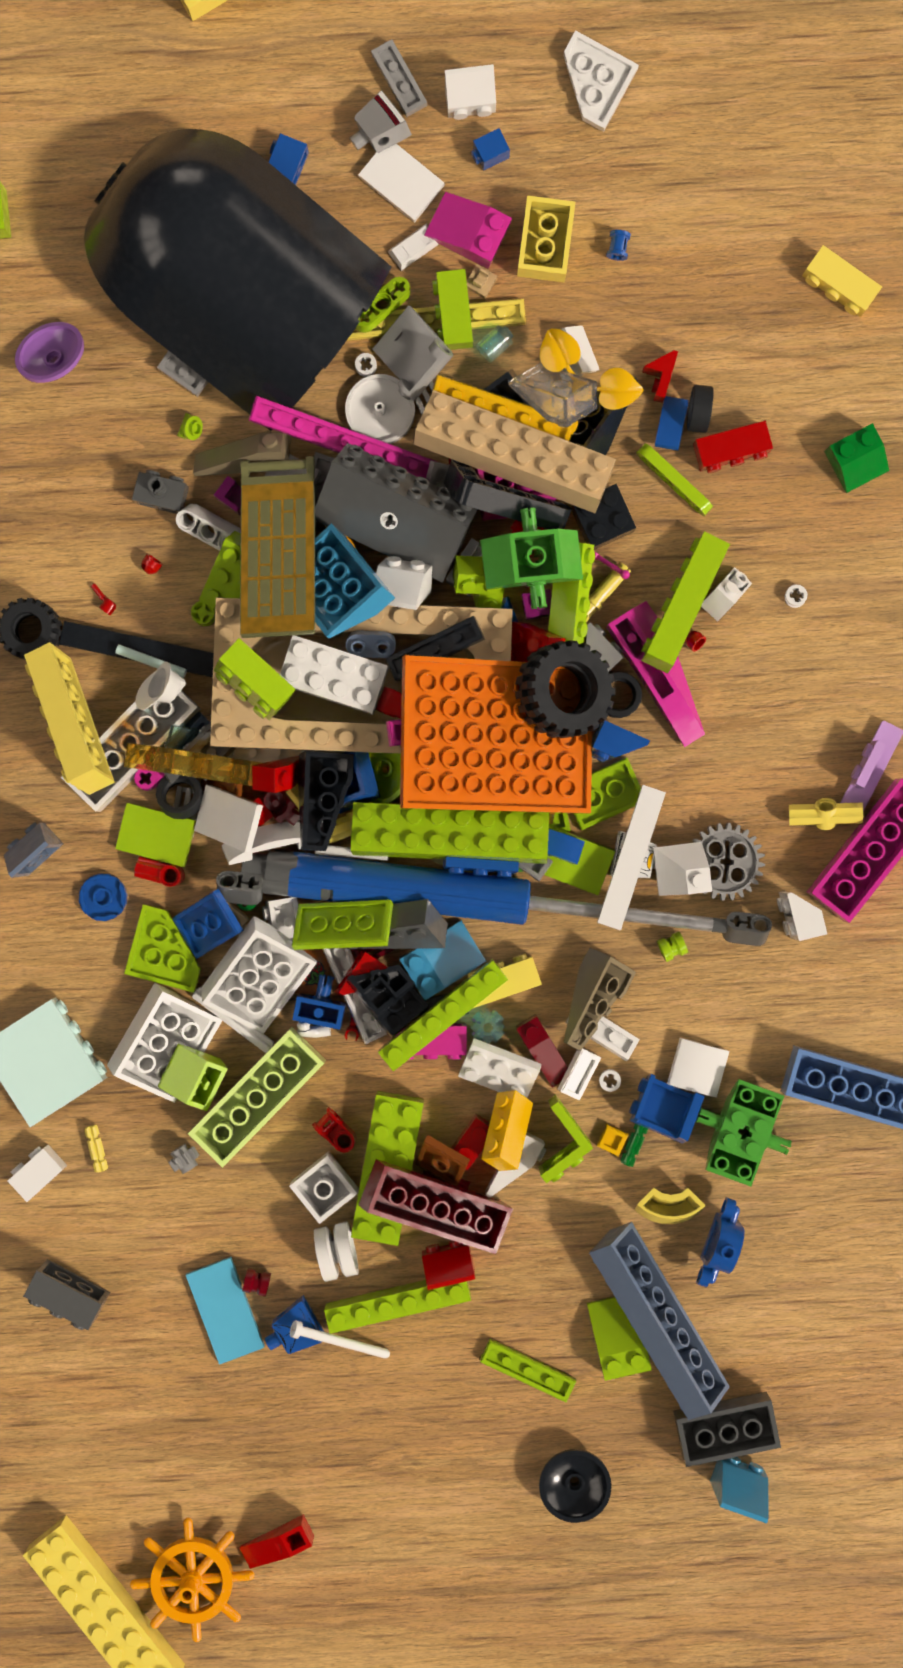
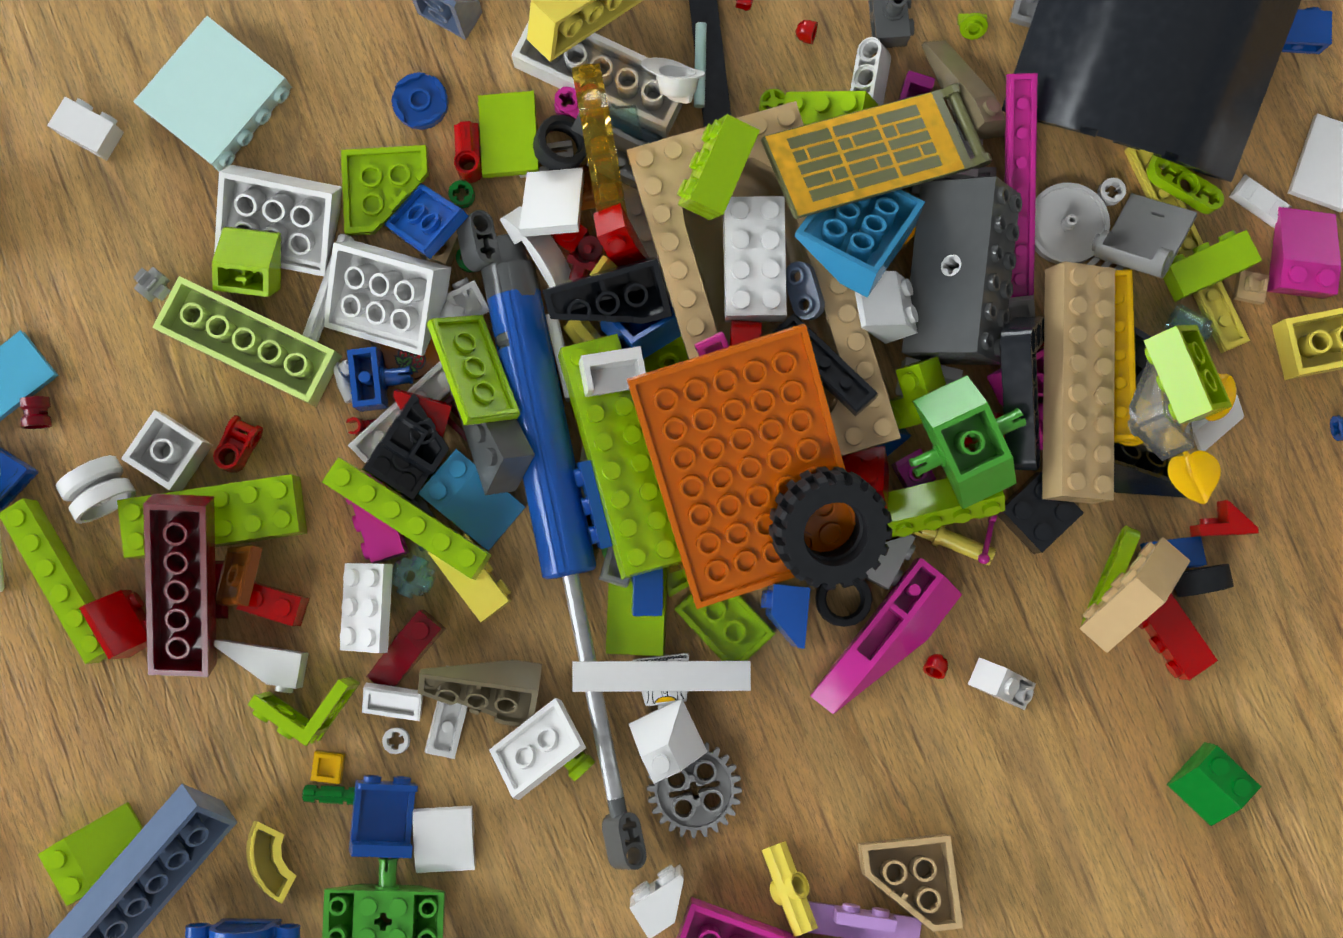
camera: 65 degrees right, 5 degrees down
(96, 1148) = (134, 184): light yellow axle -> none
(185, 892) = (455, 189): none -> green bush
(384, 816) = (608, 370): none -> white panel
(507, 1130) = (296, 639): yellow brick -> none
(528, 1370) = (27, 760): lime tile -> none
(538, 367) = (1186, 373): none -> brick
(654, 972) = (537, 749): none -> white plate
(685, 602) = (977, 638): lime brick -> none
(693, 468) = (1135, 594): none -> tan brick
(801, 591) = (1020, 761): white bush -> none
(850, 712) = (917, 876): none -> tan brick

